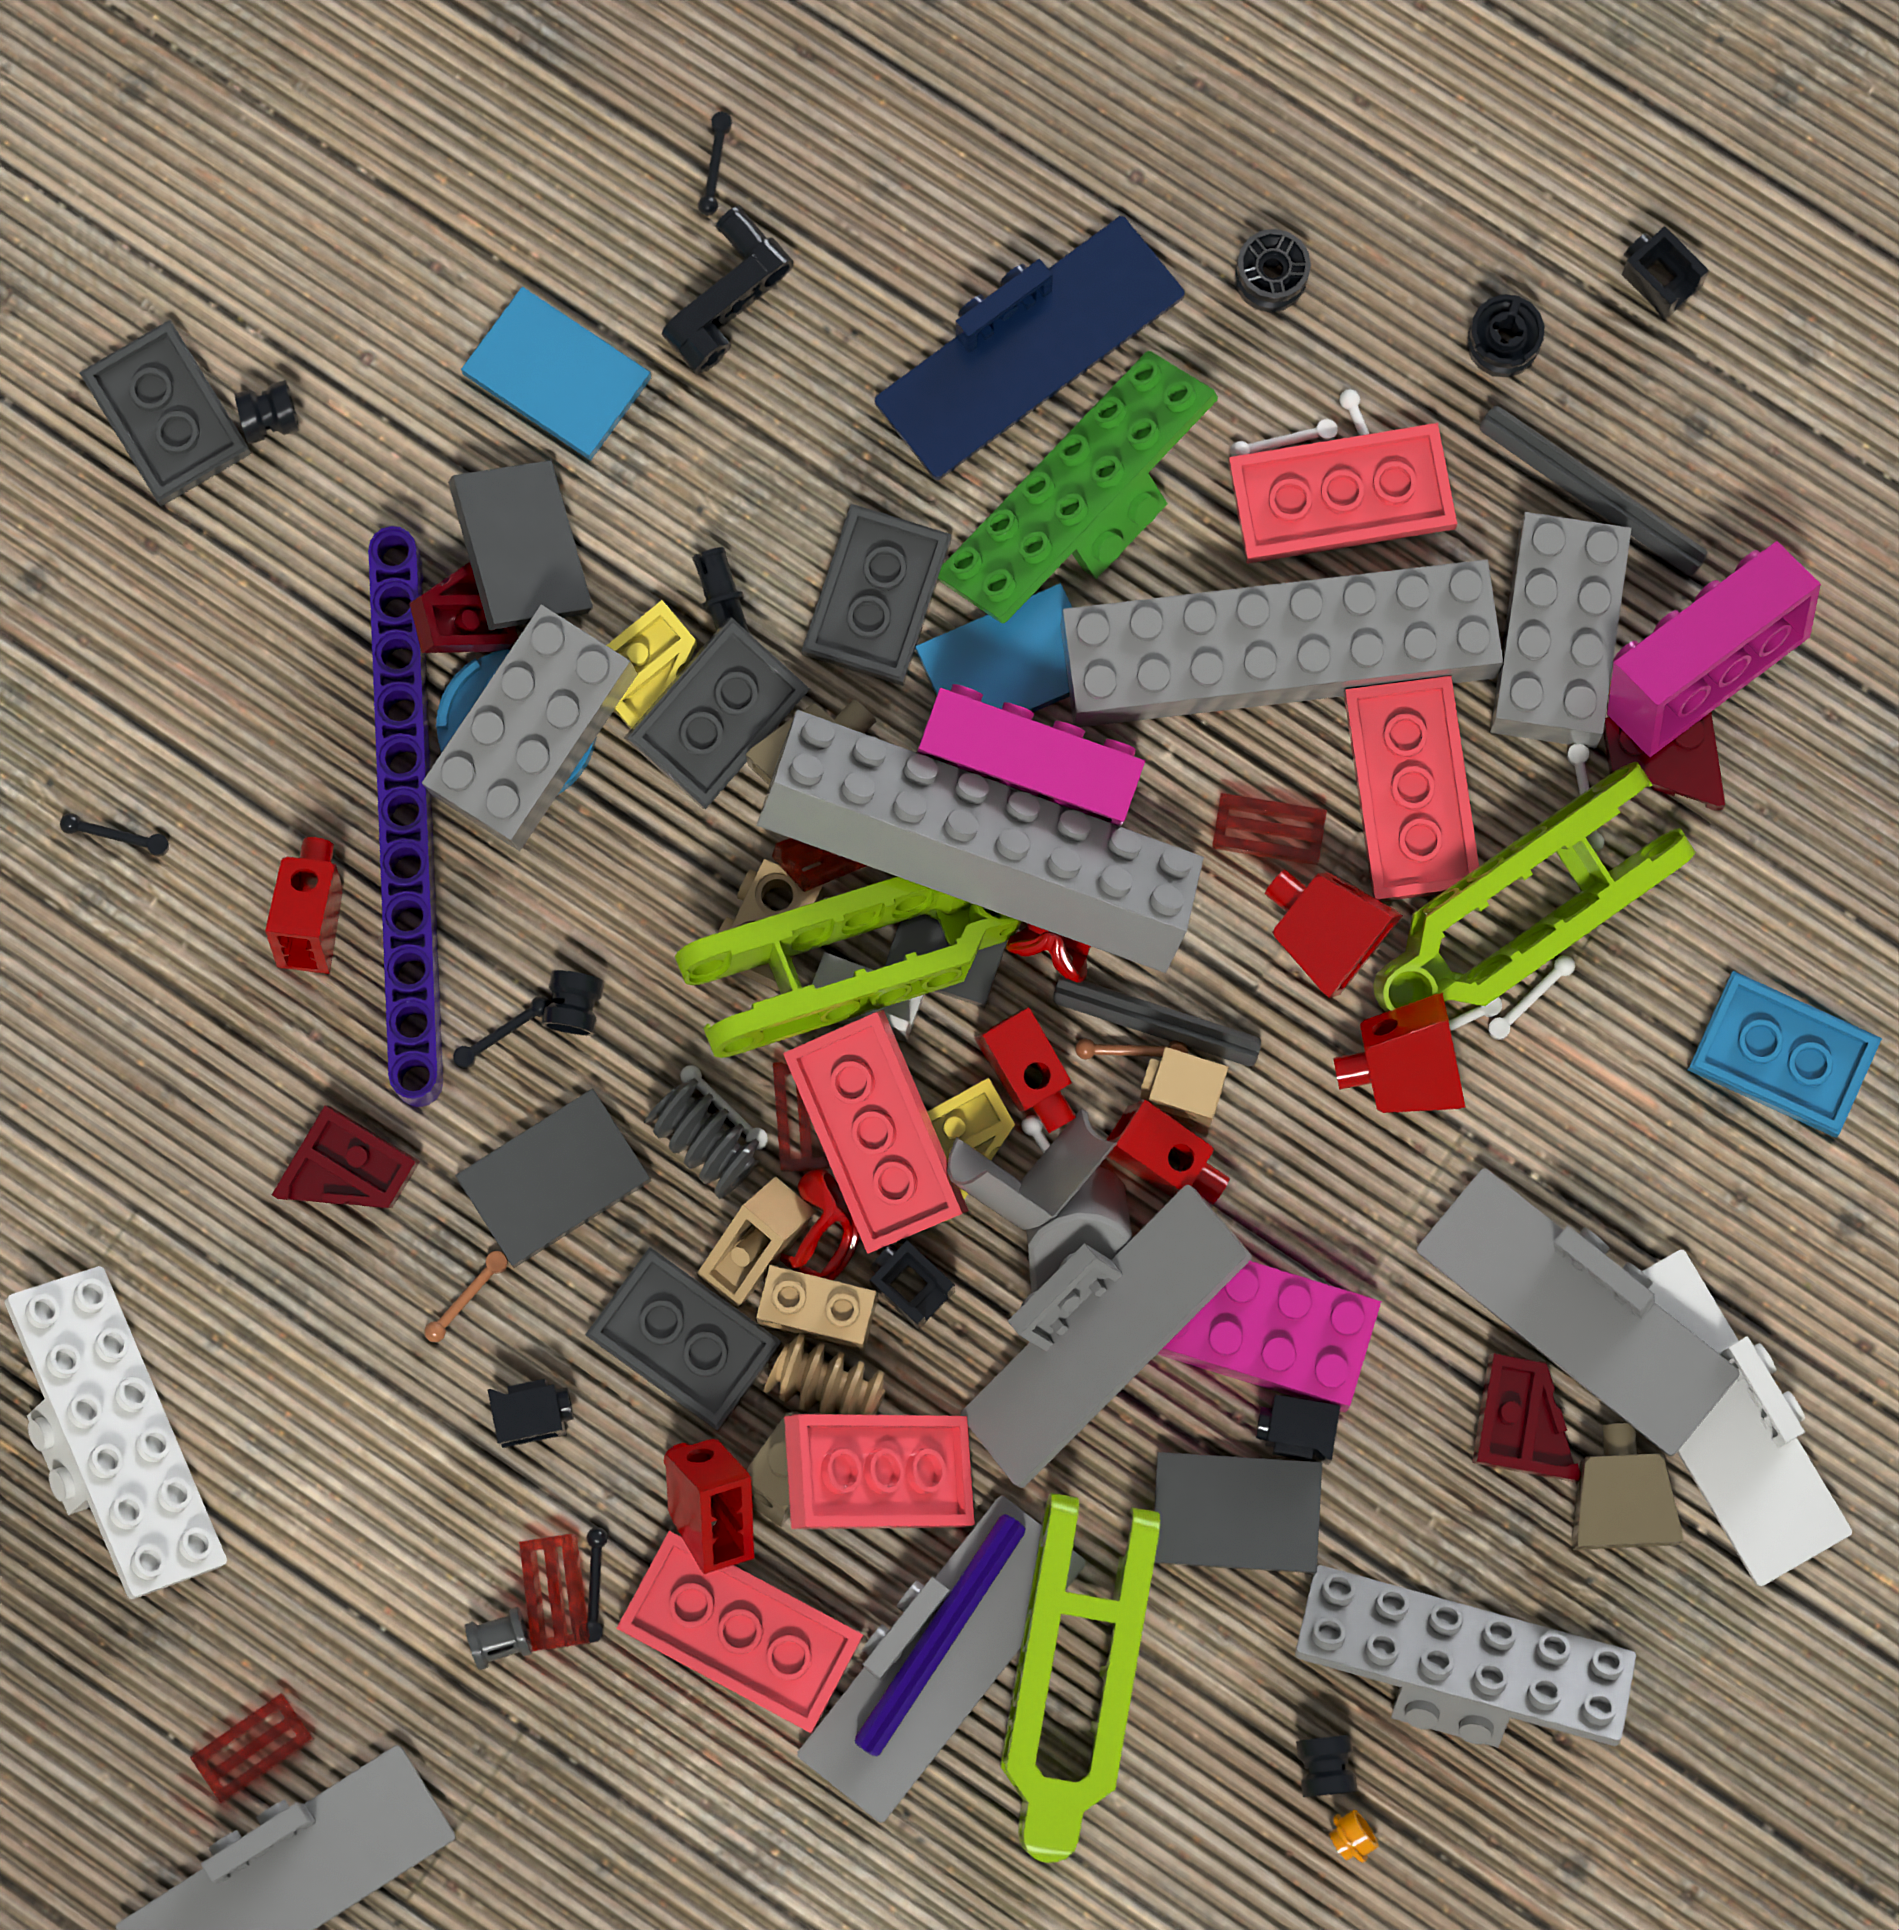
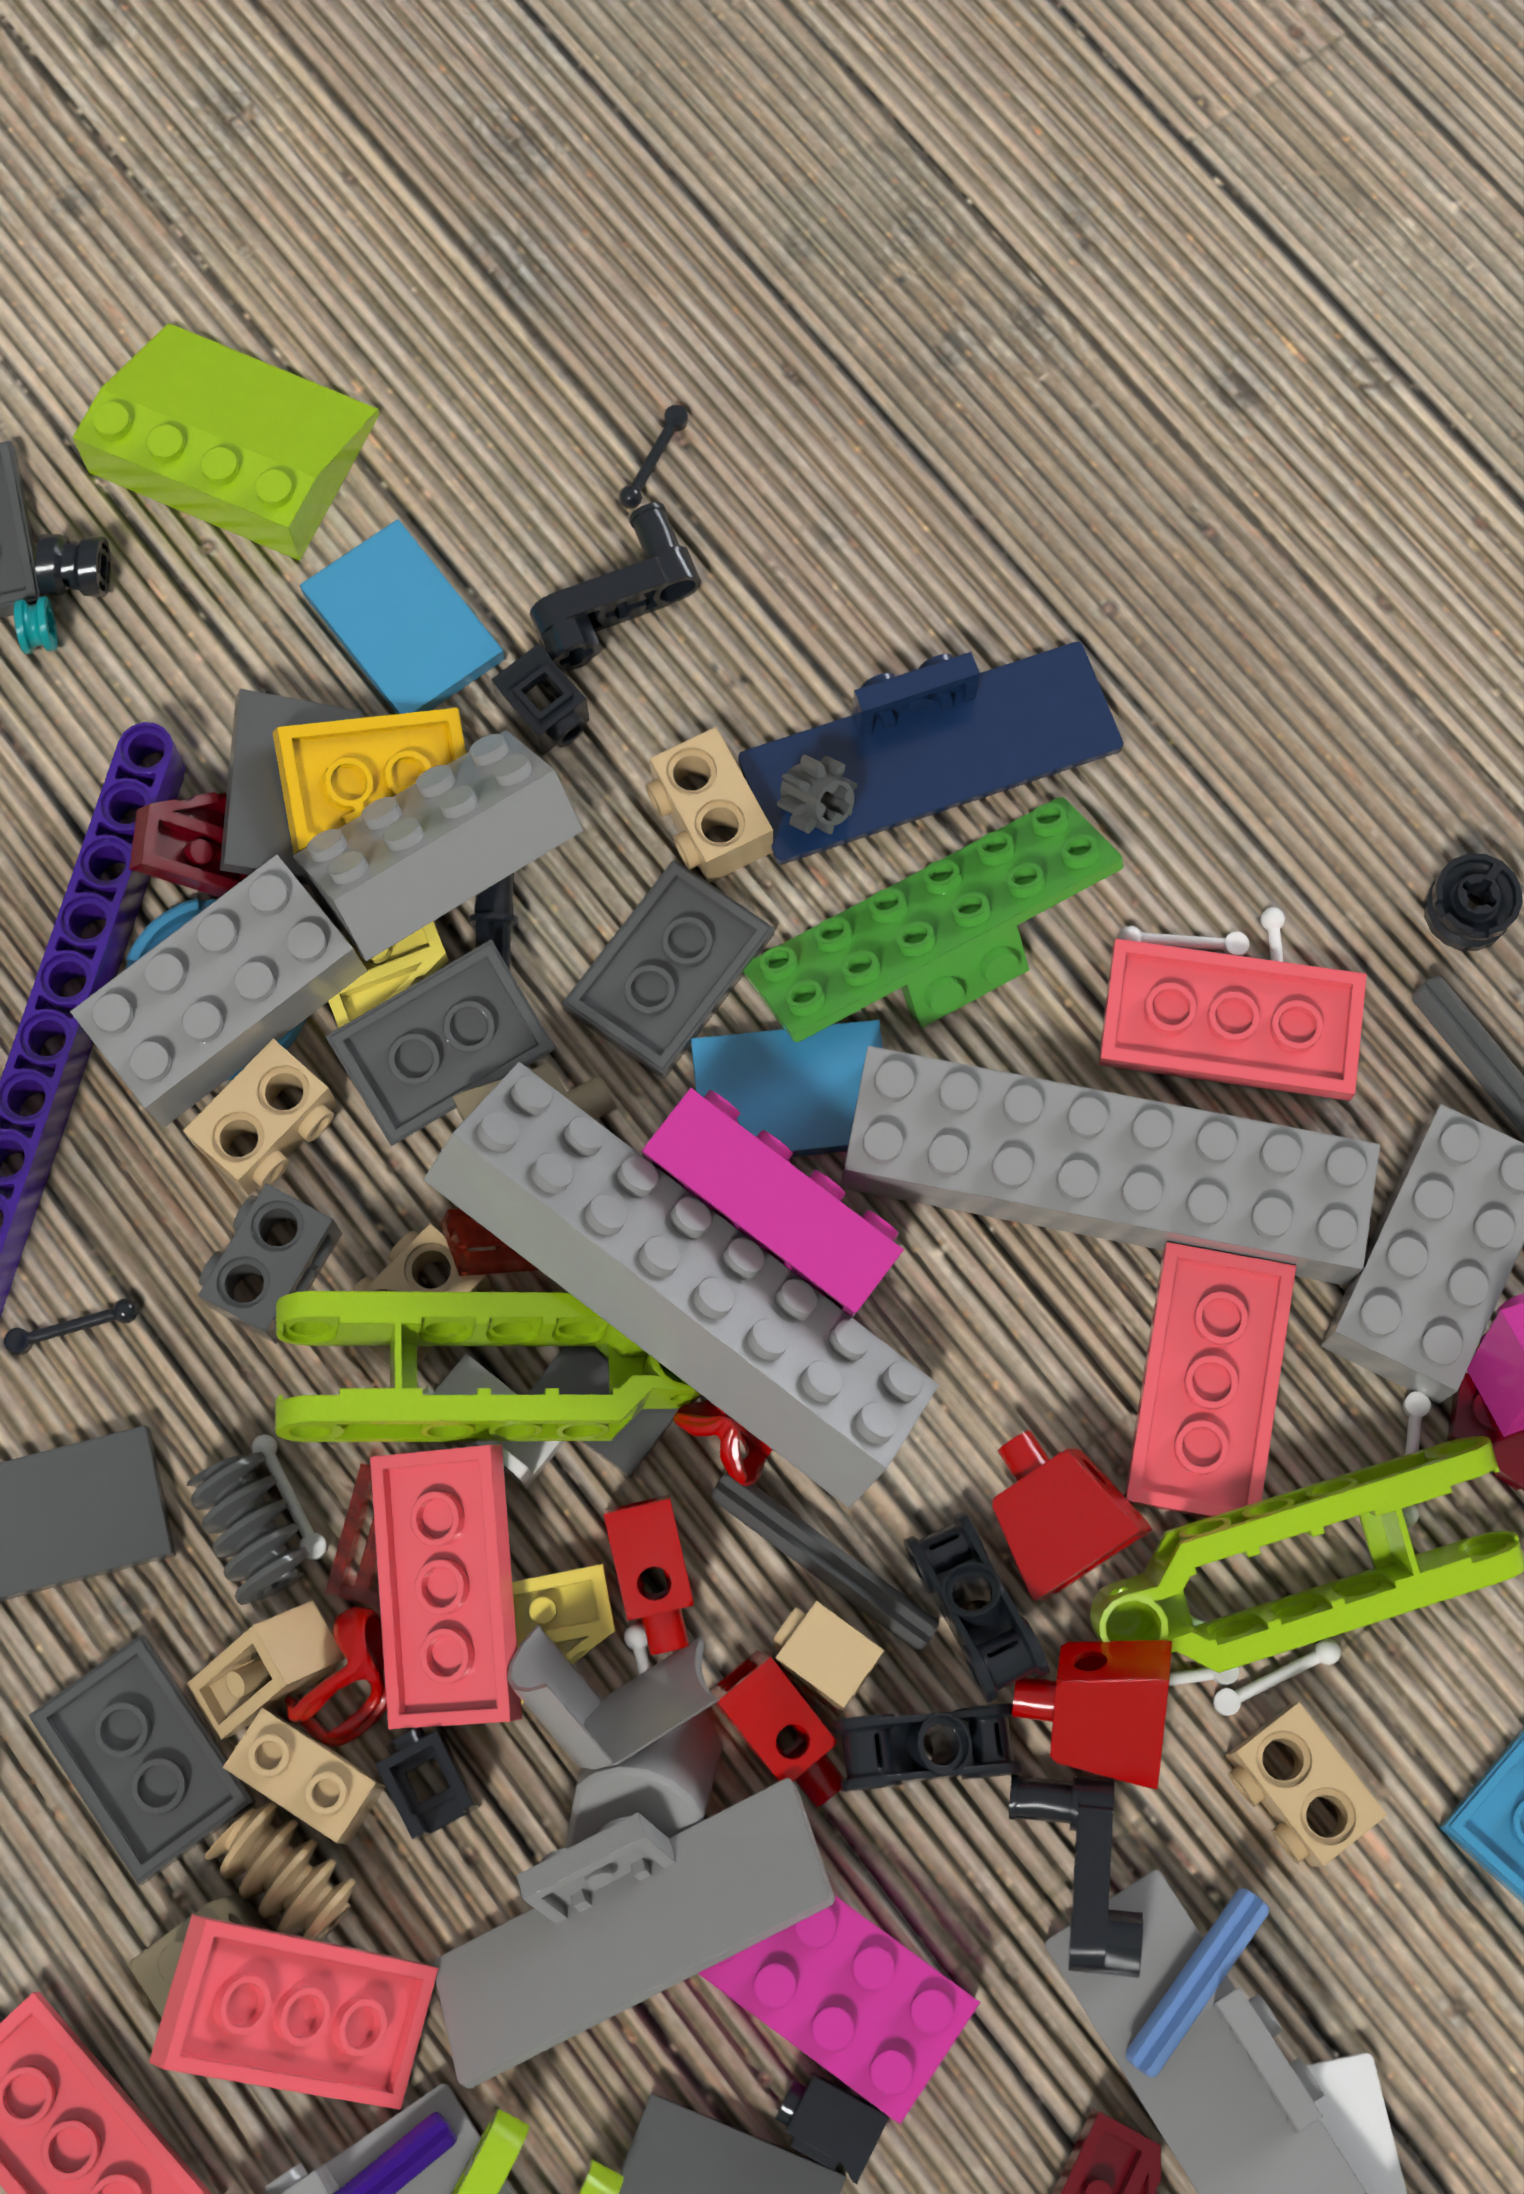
camera: 15 degrees right, 5 degrees down
(254, 472) = (35, 625): none -> teal bush
(352, 259) = (225, 438): none -> lime slope
(572, 1002) = (158, 1318): black wheel -> none
(573, 508) = (344, 765): none -> yellow wing
(583, 816) = (248, 1108): none -> tan brick
(656, 932) = (283, 1268): none -> dark grey brick
(662, 551) = (437, 842): none -> light grey brick
(706, 1487) = (86, 1944): red torso -> none
(718, 421) = (558, 722): none -> black window
(877, 442) = (721, 802): none -> tan brick
(952, 415) = (817, 794): none -> dark grey gear
(1087, 1049) = (731, 1566): nougat hinge -> none
(1255, 1140) = (891, 1750): none -> black piece
(1272, 249) = (1235, 728): black wheel -> none
(1274, 809) = (1040, 1354): clear red tile -> none
(1307, 1036) = (993, 1639): none -> black piece
(1454, 1227) = (1099, 1937): none -> black beam
(1537, 1236) = (1197, 1982): none -> medium blue axle
(1583, 1058) = (1316, 1773): none -> tan brick

